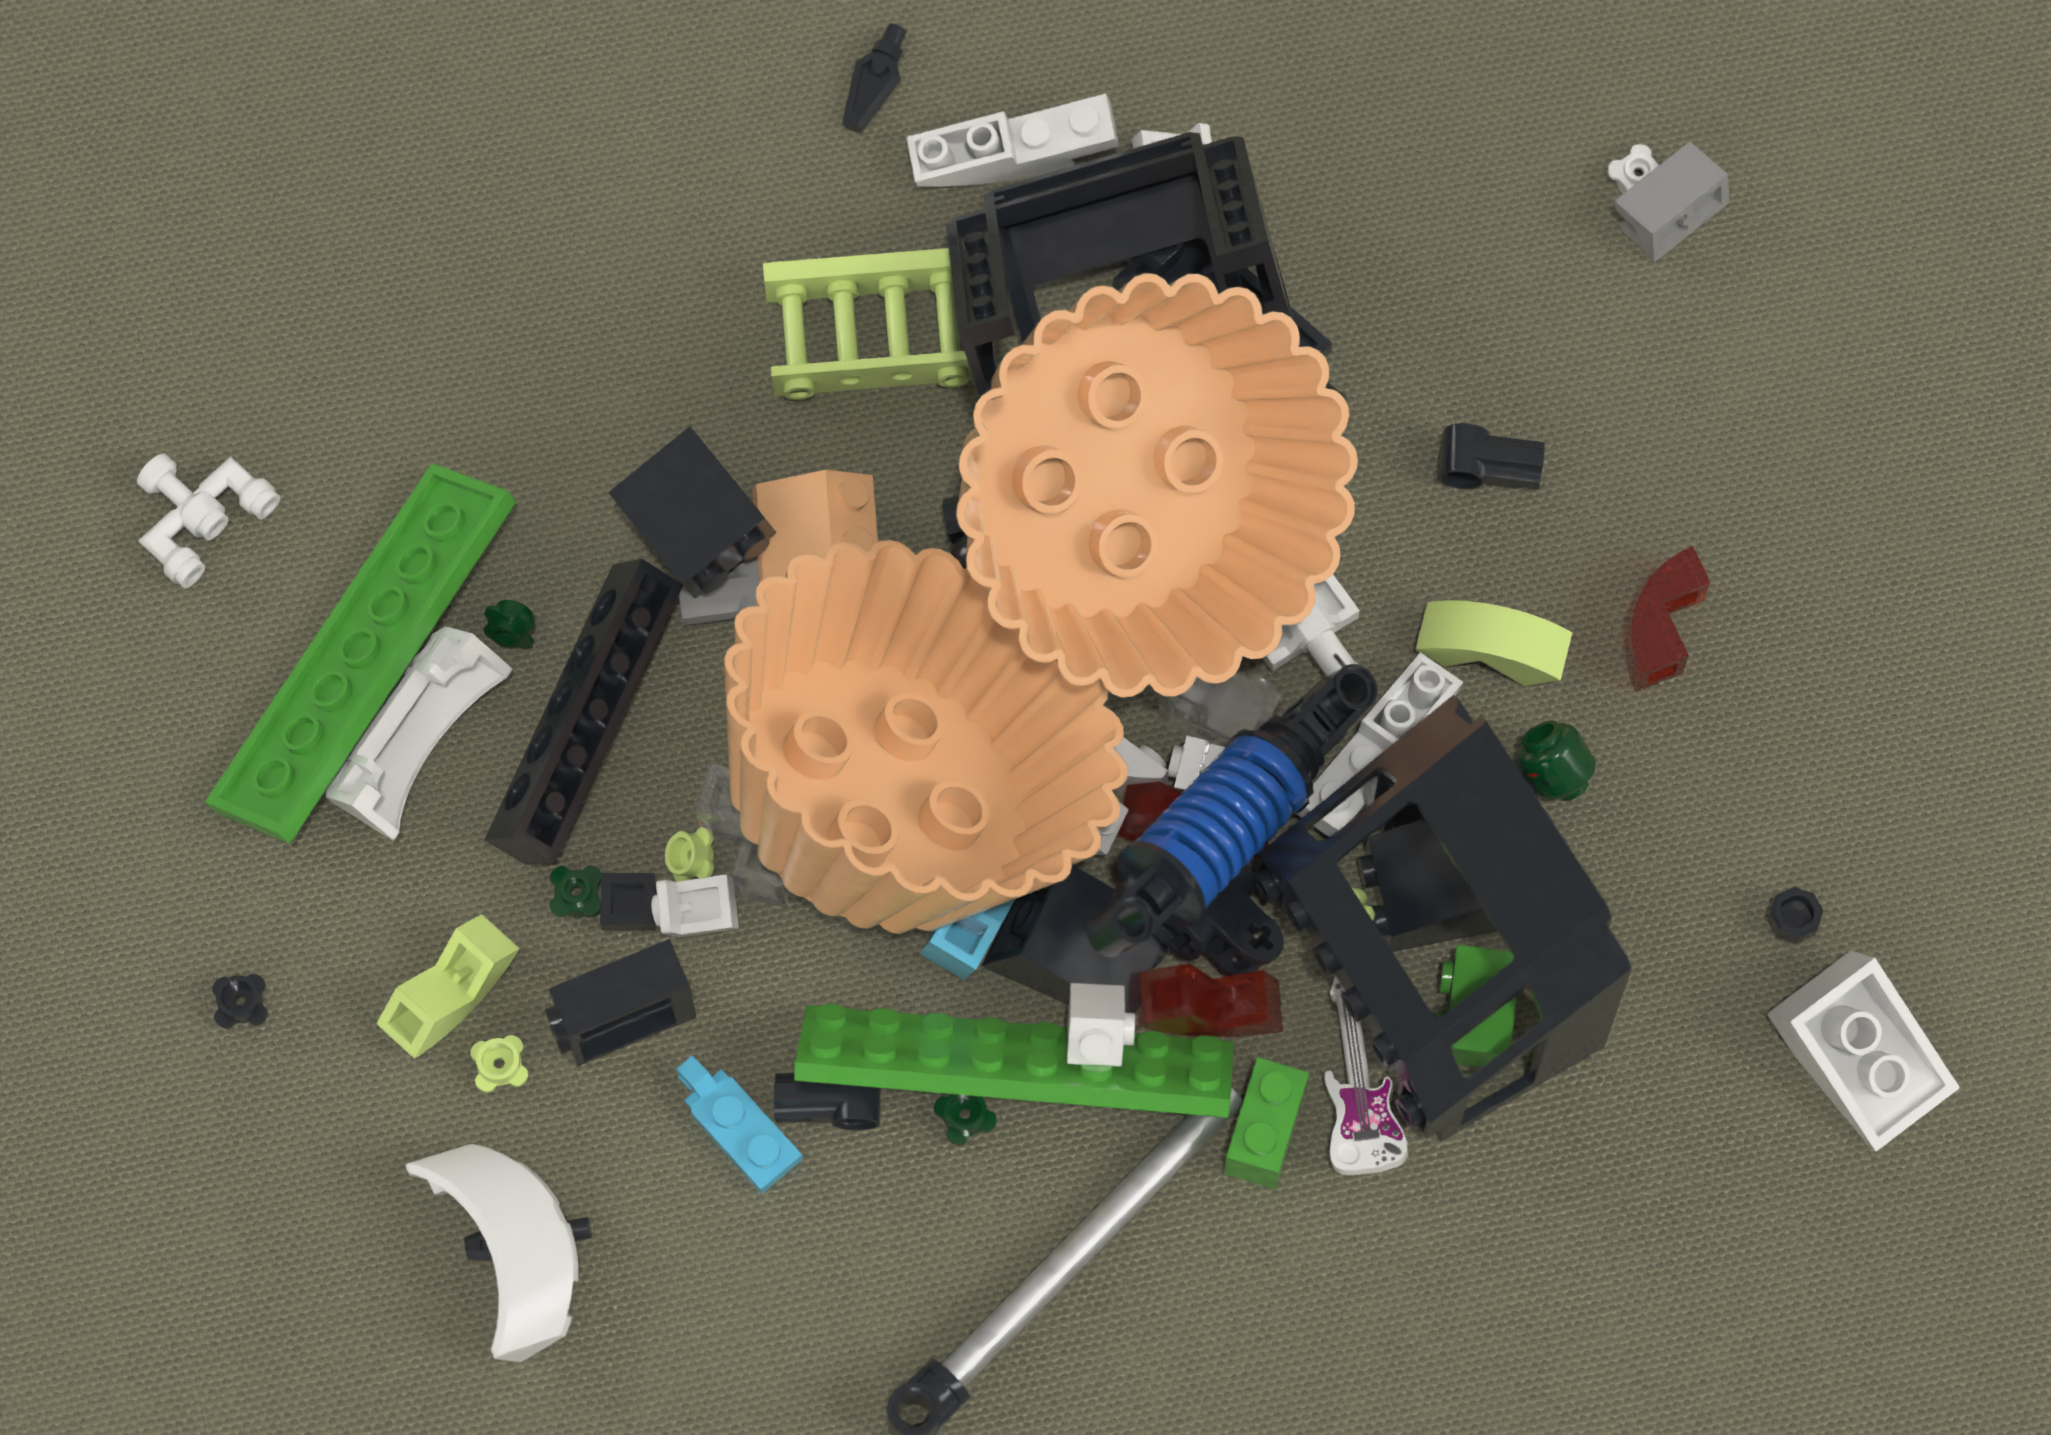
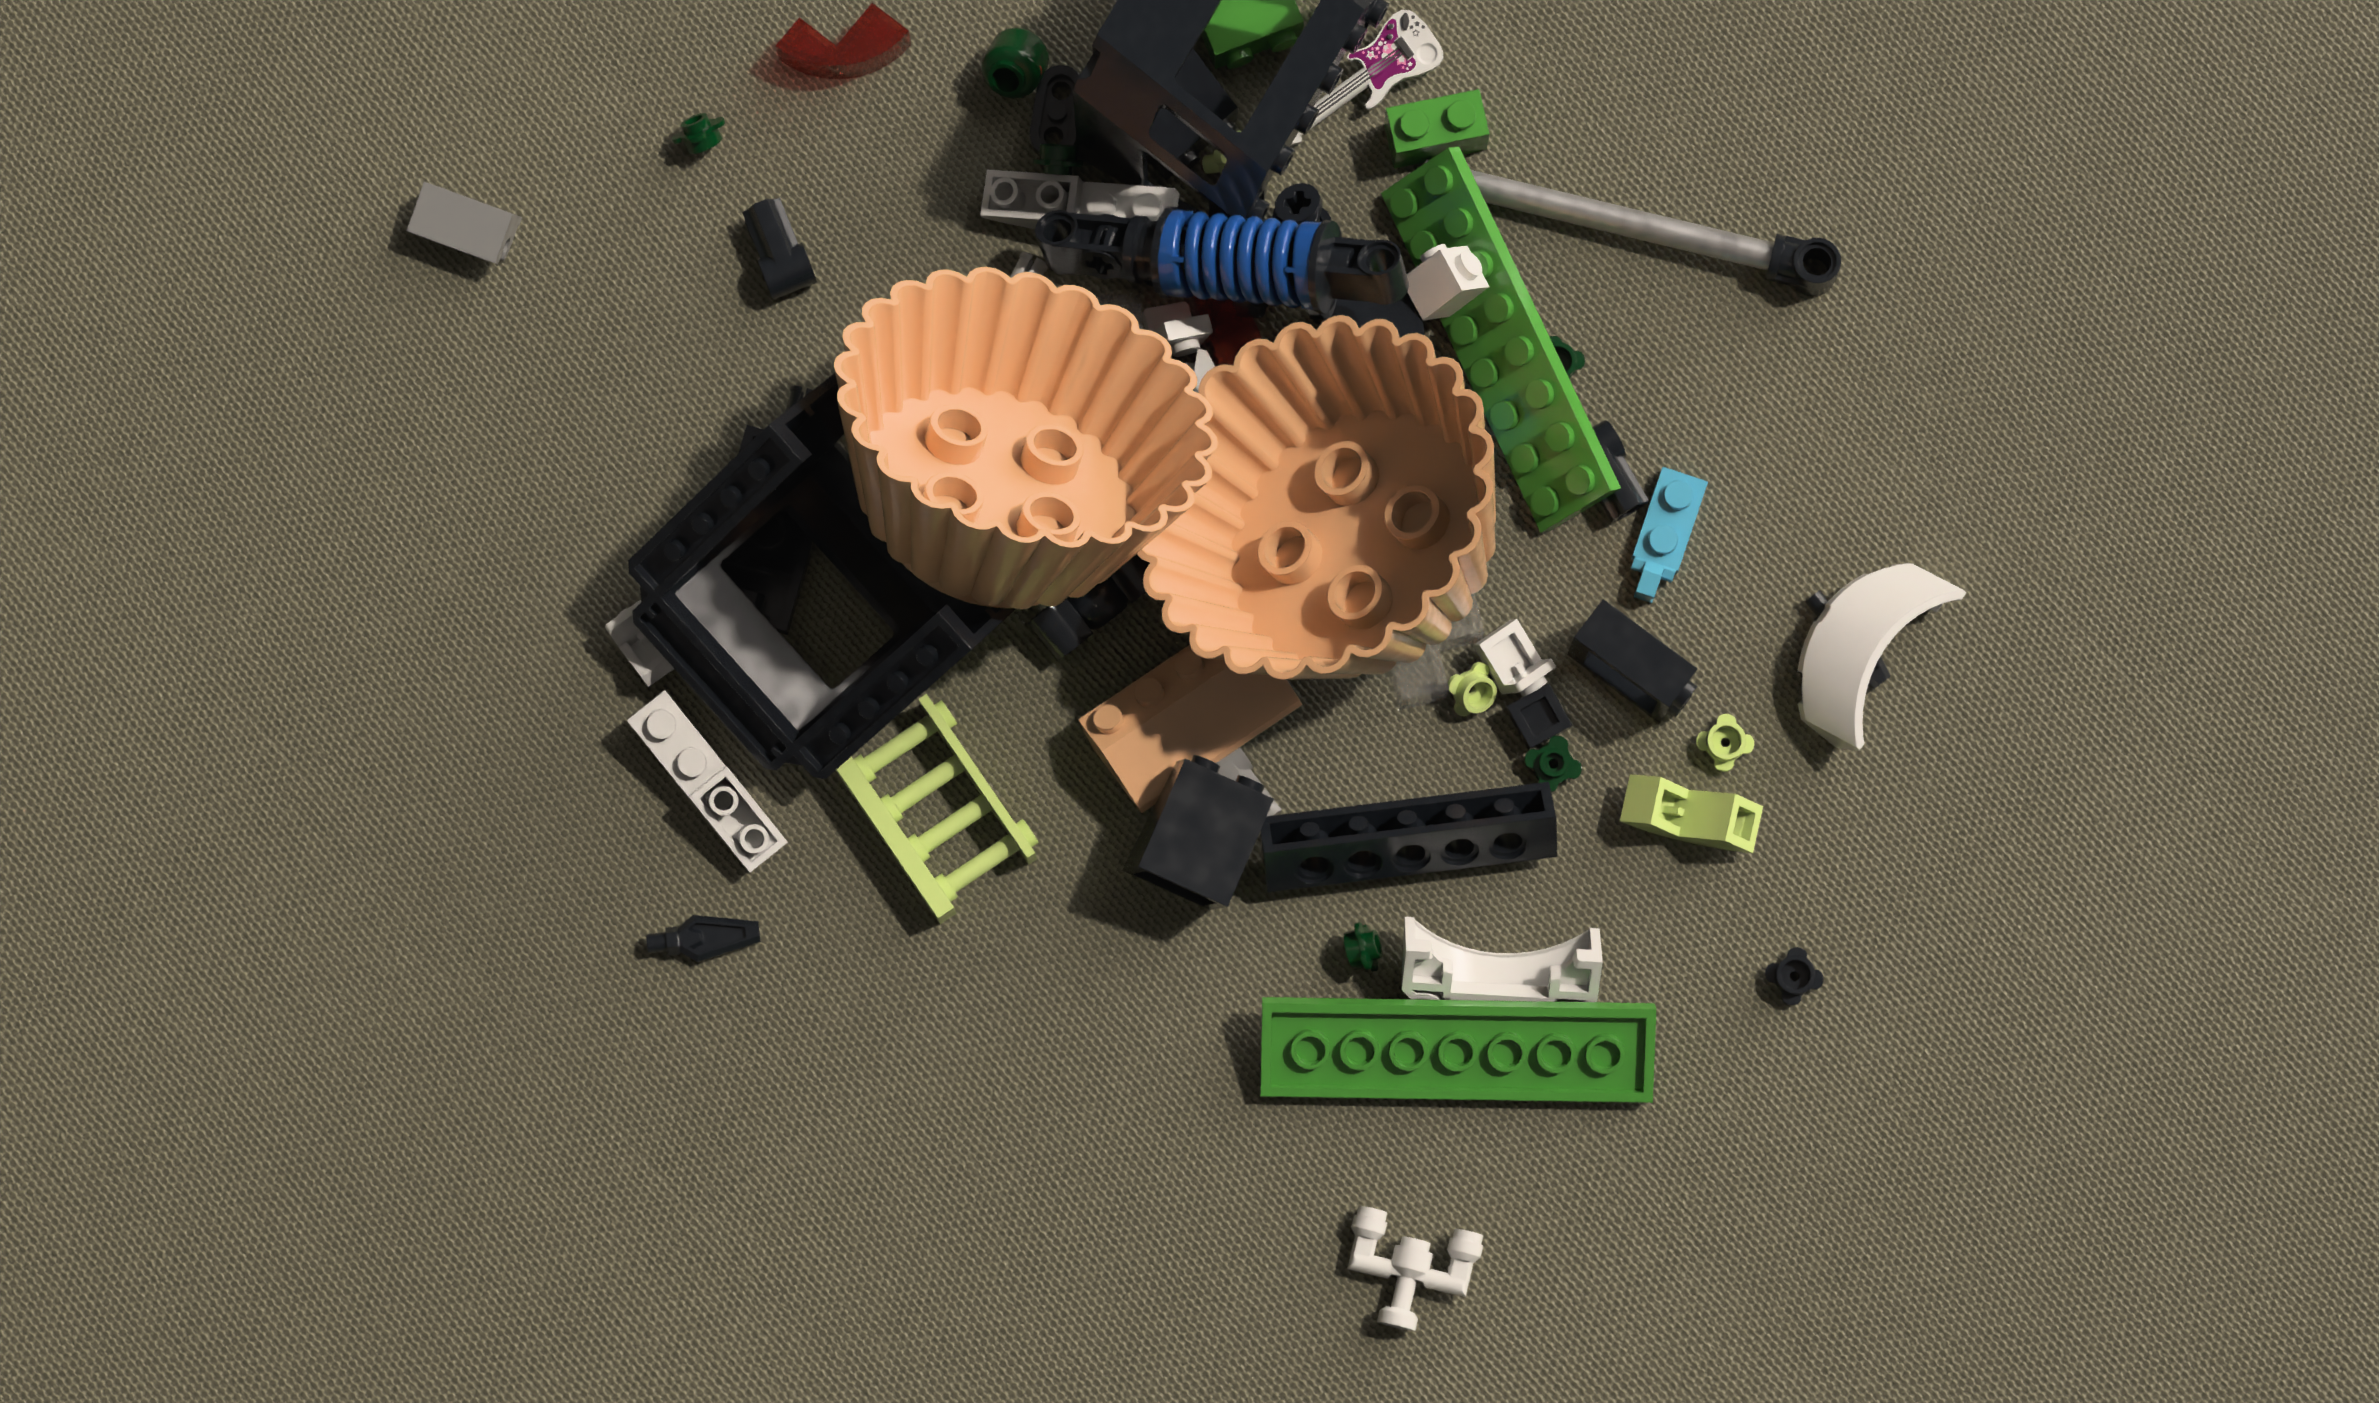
camera: 120 degrees left, 10 degrees up
(1194, 1004) = (1359, 212): clear red brick -> none
(1501, 637) = (939, 163): yellowish green brick -> none
(1624, 169) = (453, 278): white plate -> none
(1646, 447) = (699, 133): none -> dark green plate

